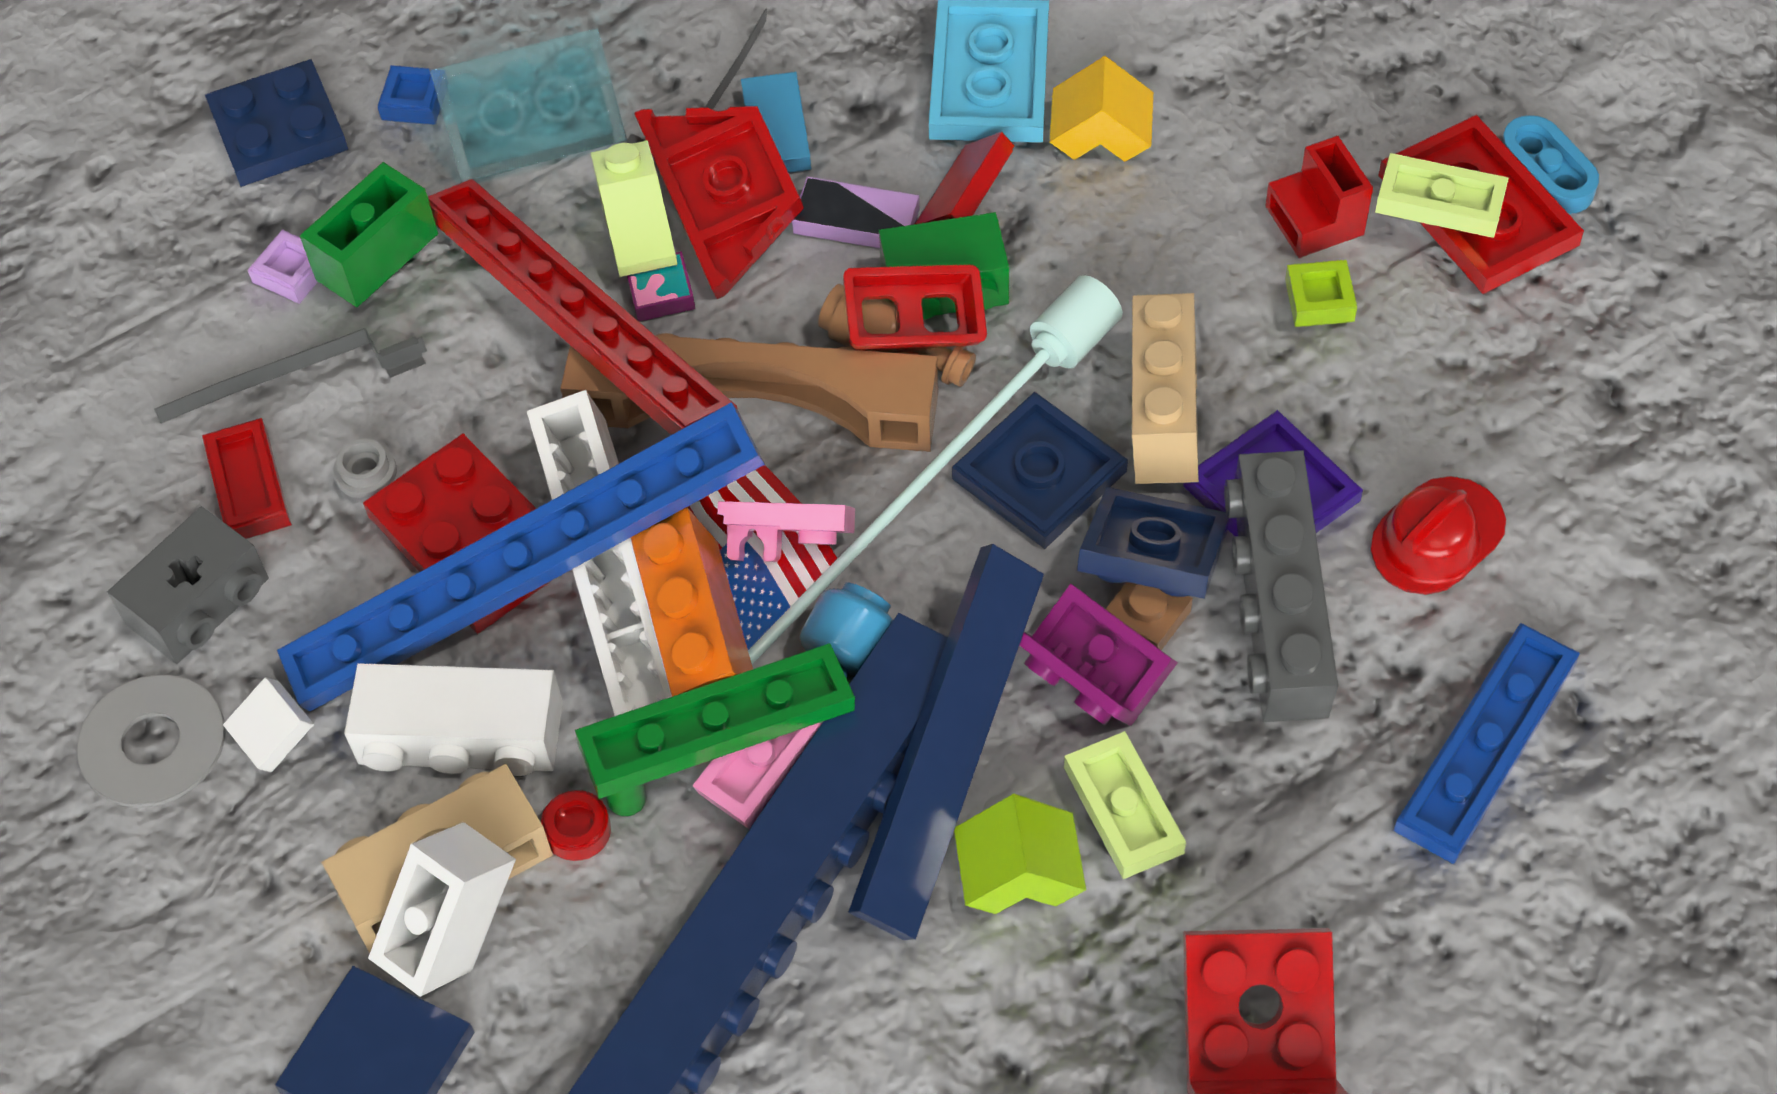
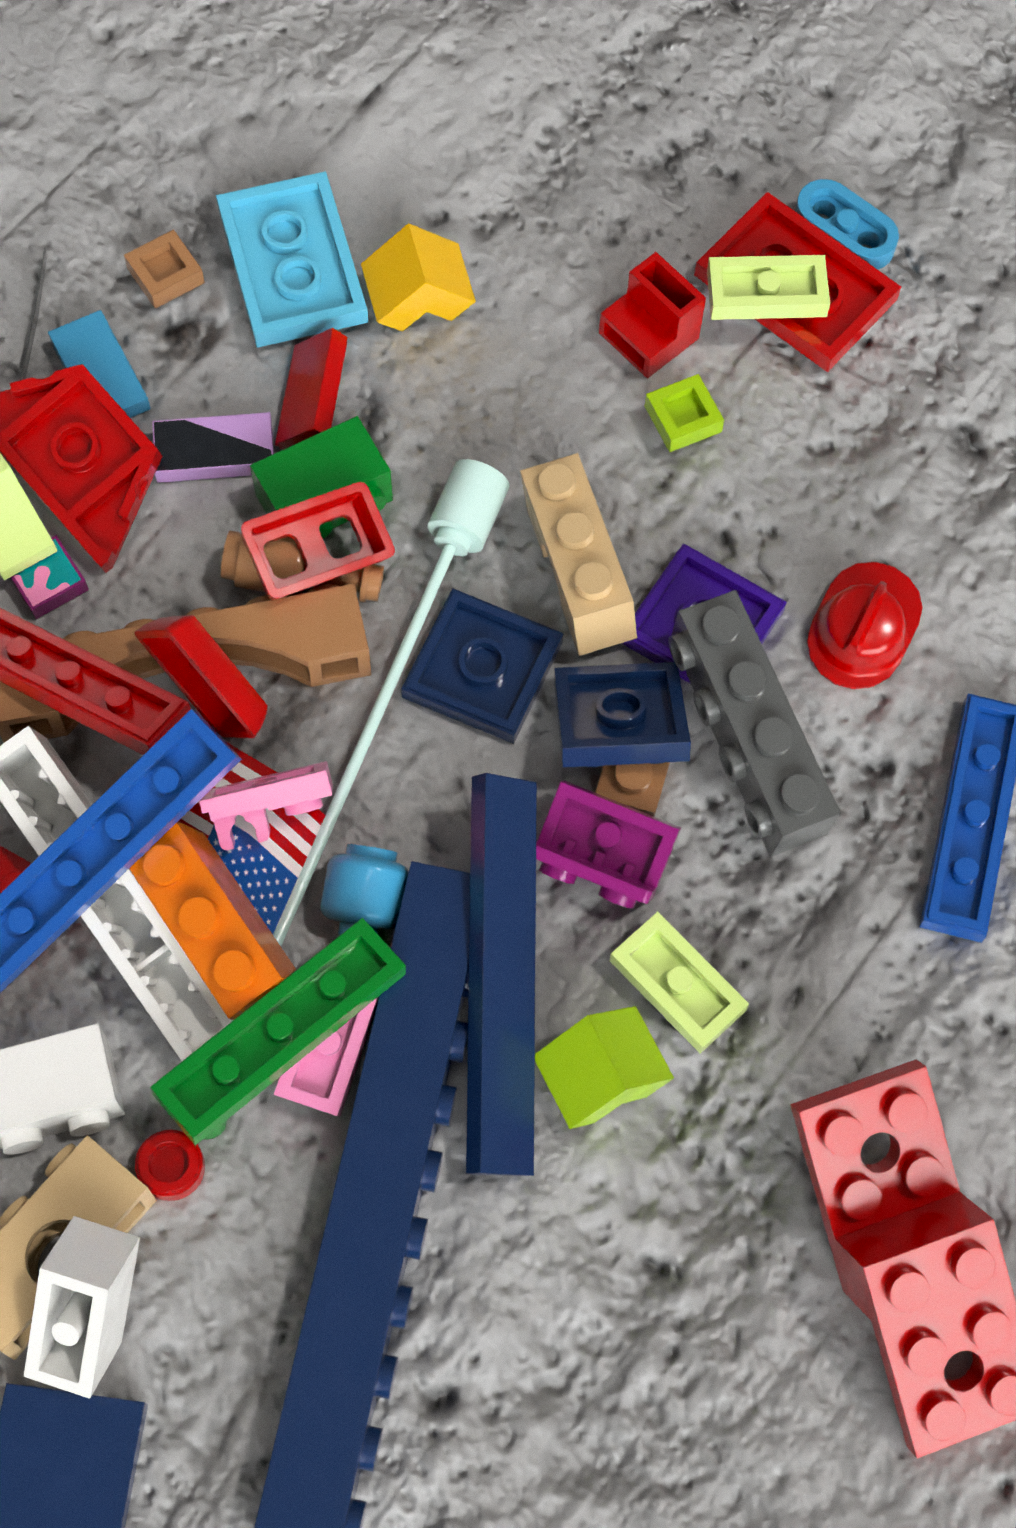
camera: 25 degrees left, 10 degrees up
(766, 397) = (204, 675): none -> red piece
(867, 50) = (164, 269): none -> medium nougat plate

